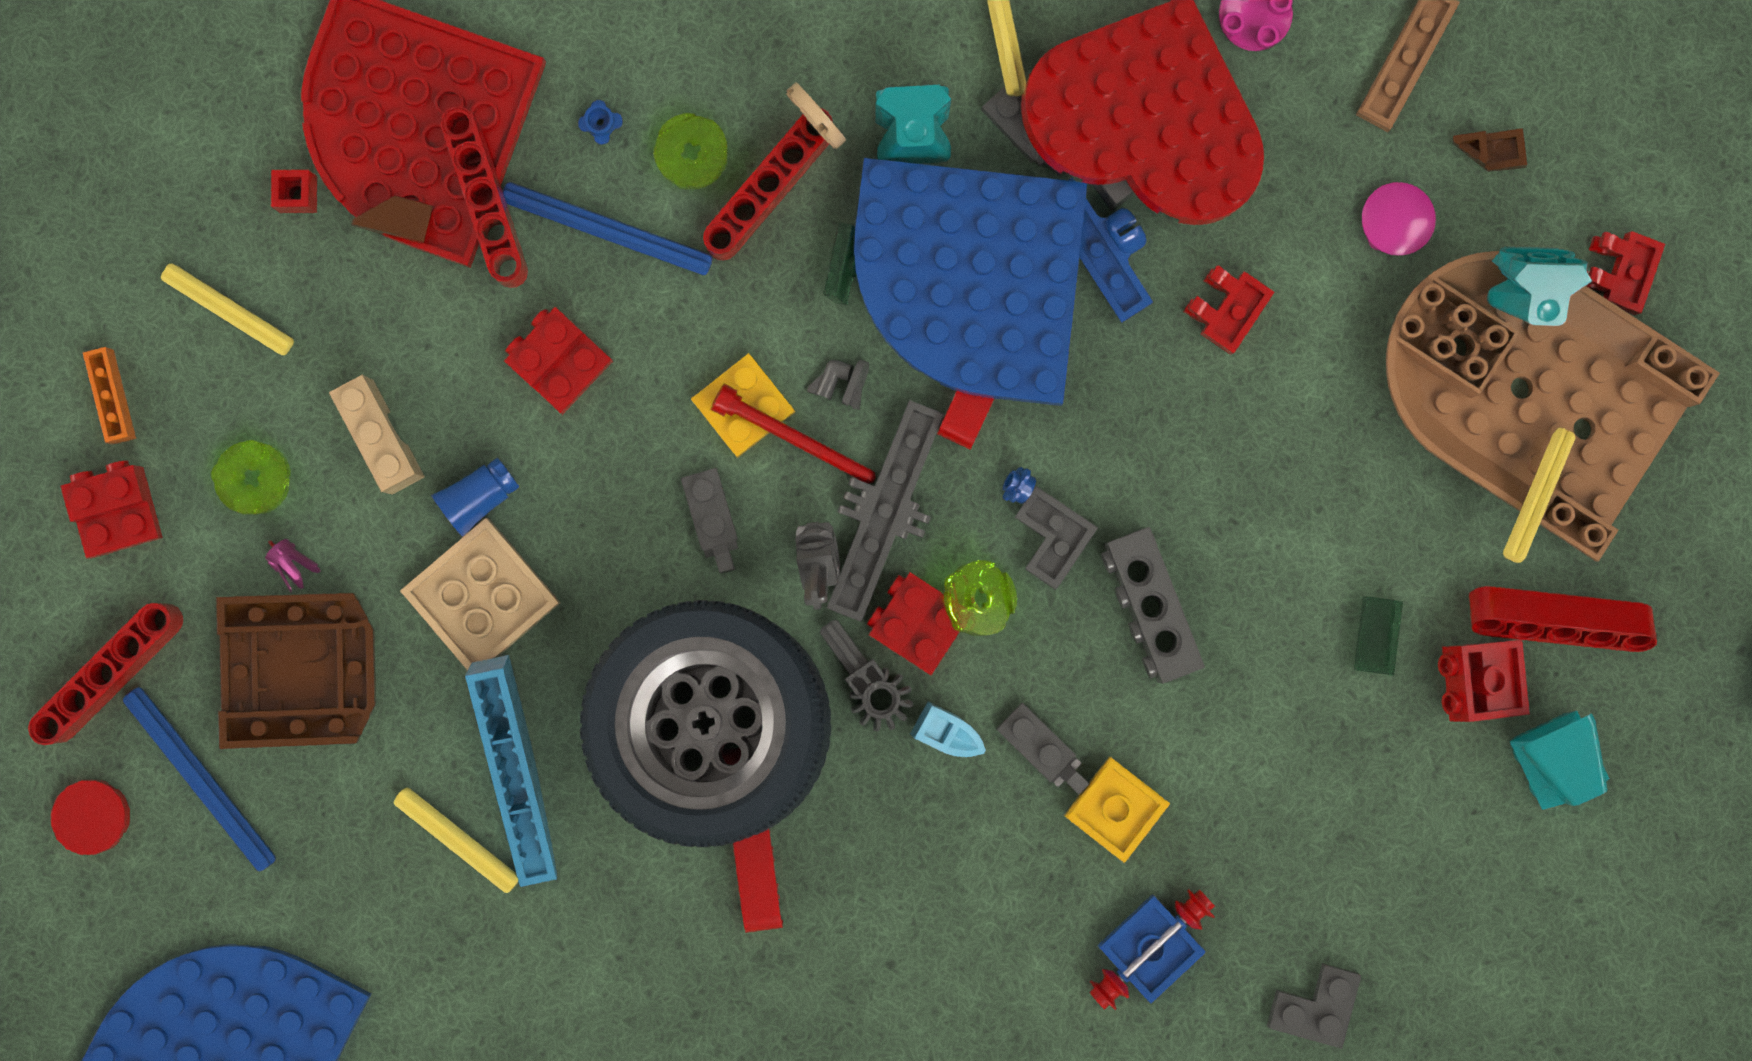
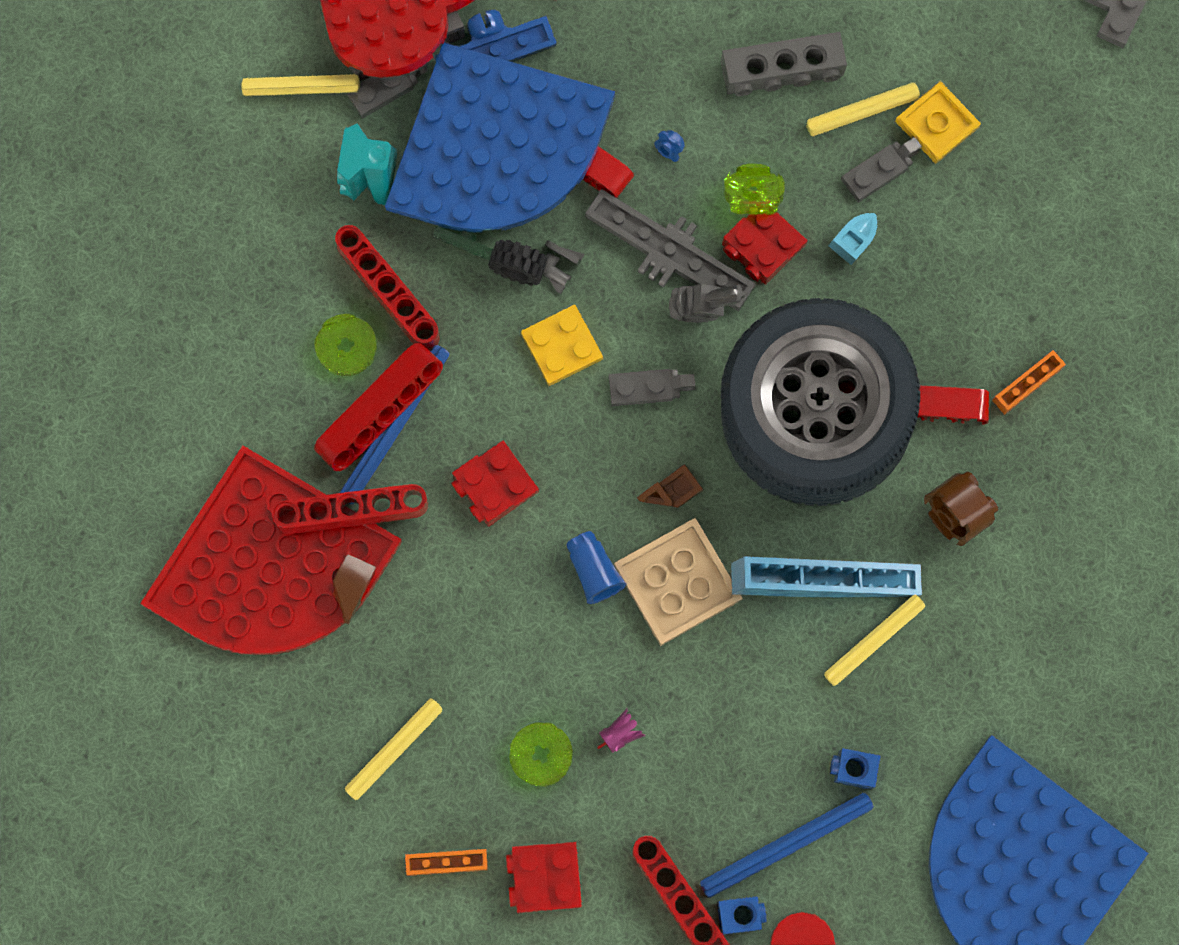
camera: 80 degrees left, 10 degrees down
(90, 735) = (726, 915): none -> blue brick
(284, 185) = (300, 662): red plate -> none
(285, 855) = (869, 765): none -> blue brick
(294, 670) = (710, 745): reddish brown wedge -> none
(374, 435) = (527, 637): tan arch -> none
(592, 571) = (673, 490): none -> reddish brown slope
(598, 111) = (304, 404): blue plate -> none
(618, 204) = (378, 407): none -> red beam
(625, 916) = (960, 508): none -> reddish brown brick
(730, 403) = (559, 348): red piece -> none
(805, 974) = (1028, 382): none -> orange piece
(815, 115) = (347, 227): tan tile -> none
(826, 331) = (517, 262): none -> black tyre
(863, 686) = (801, 286): dark grey gear -> none
(1064, 536) = (716, 119): dark grey plate -> none
(1116, 714) = (862, 109): none -> light yellow axle
(1151, 949) = (1050, 117): blue plate -> none

